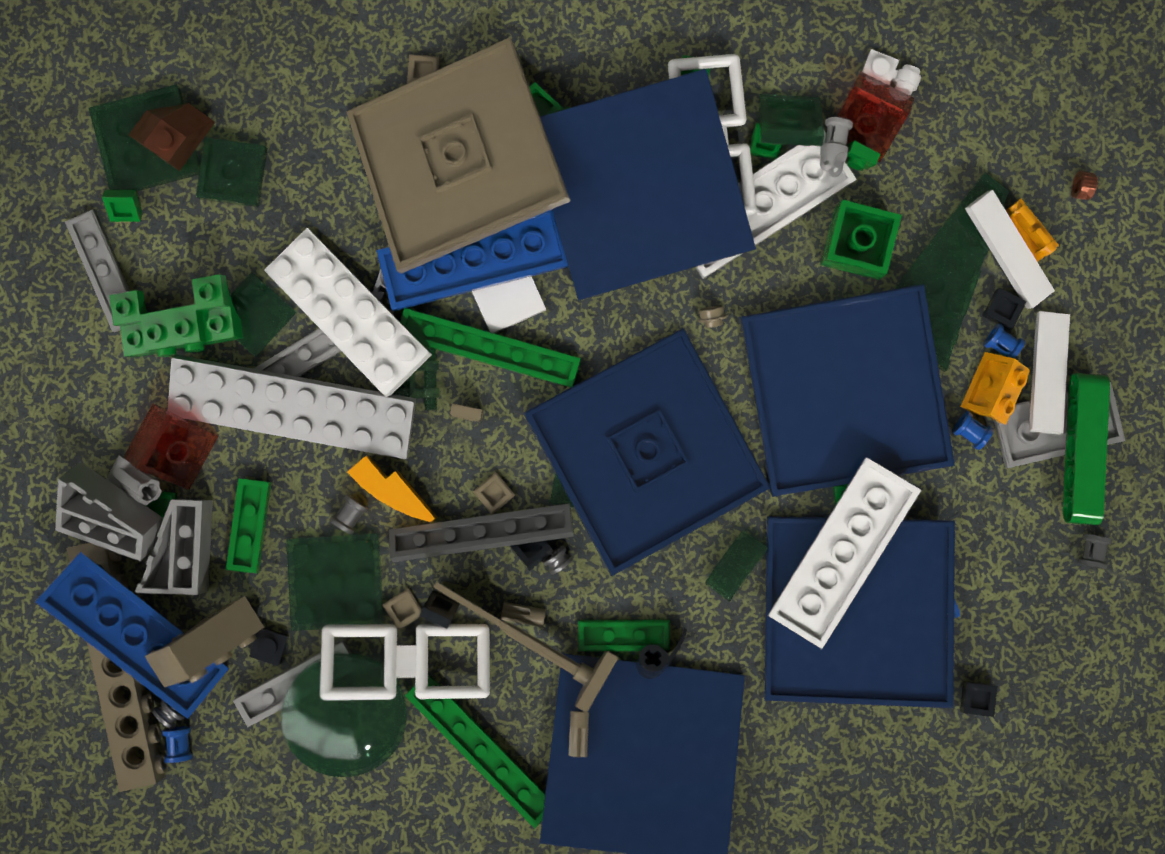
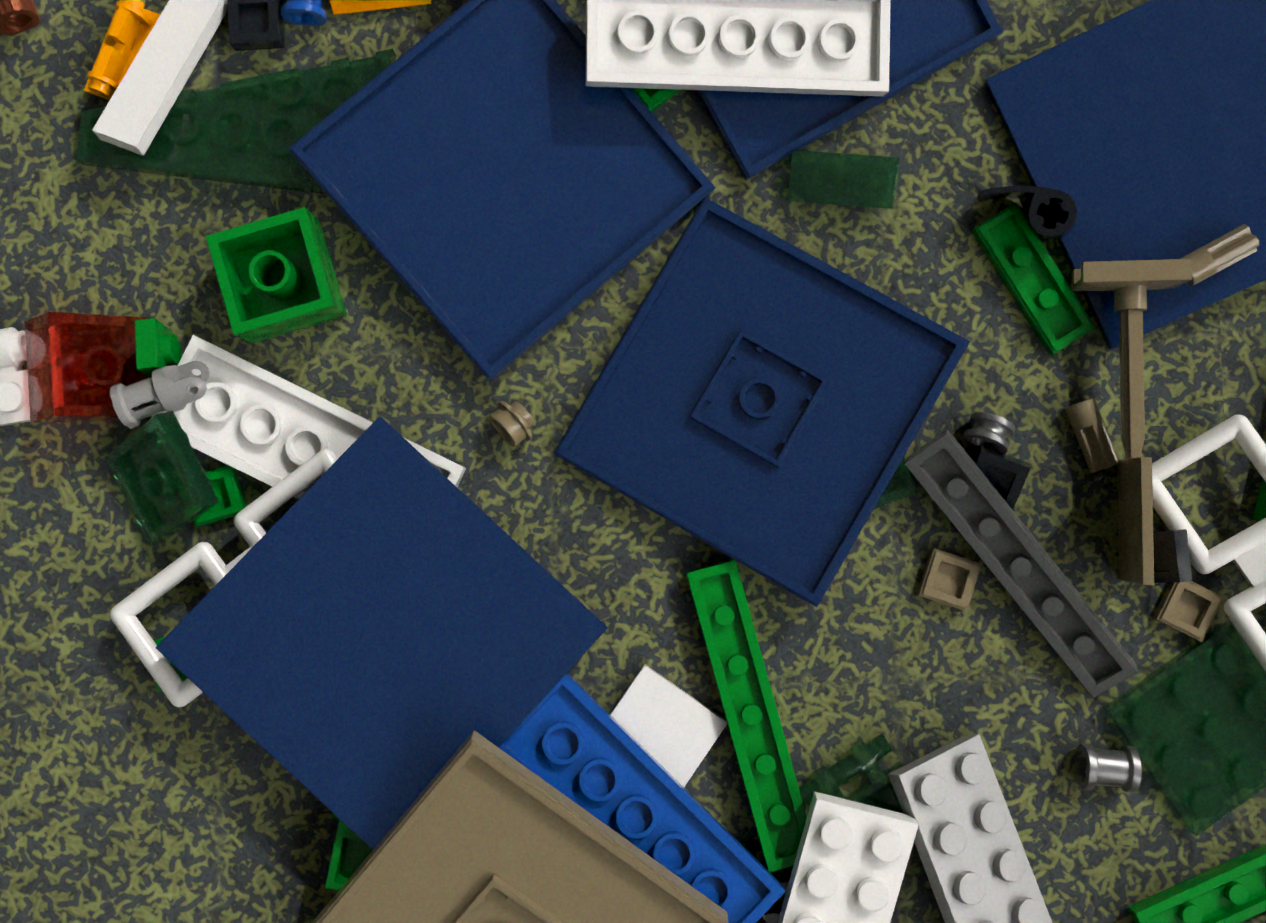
camera: 120 degrees left, 0 degrees up
(391, 490) = (1040, 727): light orange slope -> none
(466, 413) = (863, 688): dark tan tile -> none

